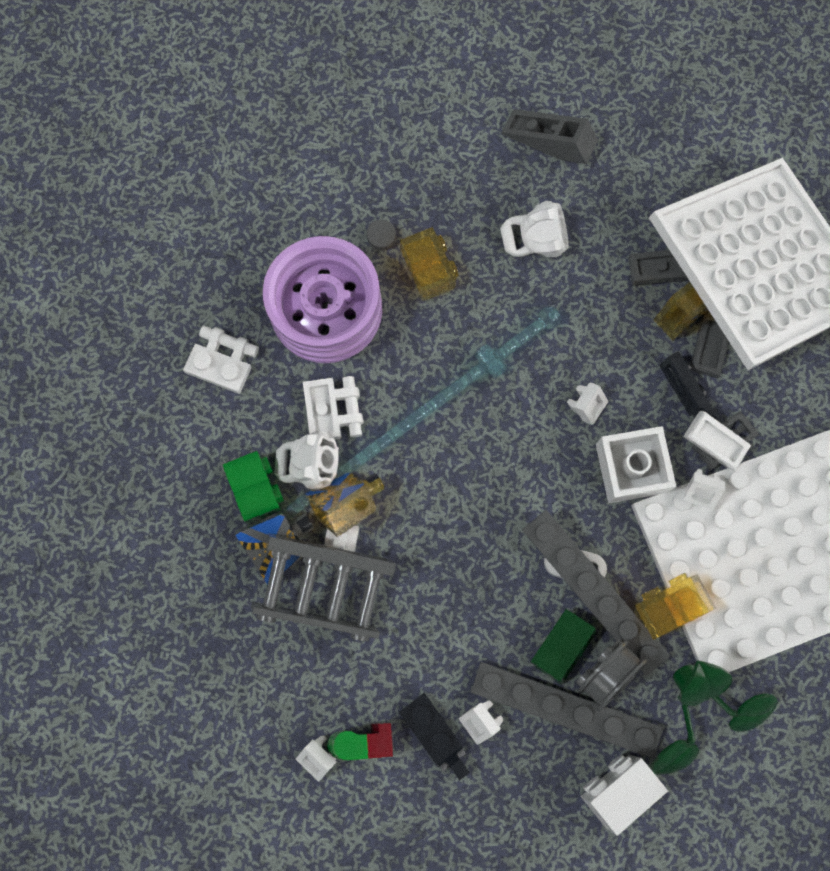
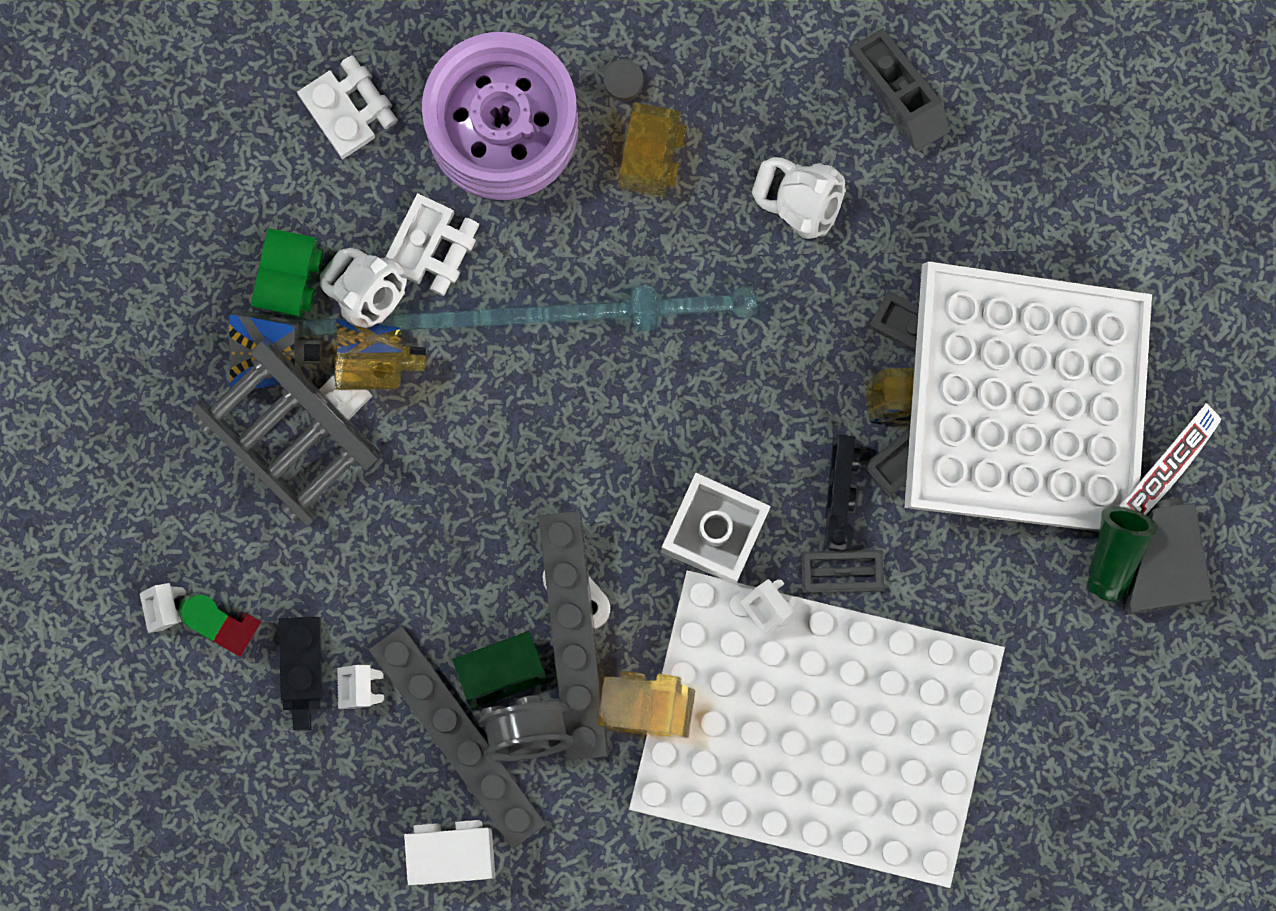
camera: 35 degrees right, 5 degrees up
(590, 403) = (718, 428): white tile -> none
(696, 686) = (606, 801): dark green plant -> none
(717, 440) = (826, 564): white tile -> none

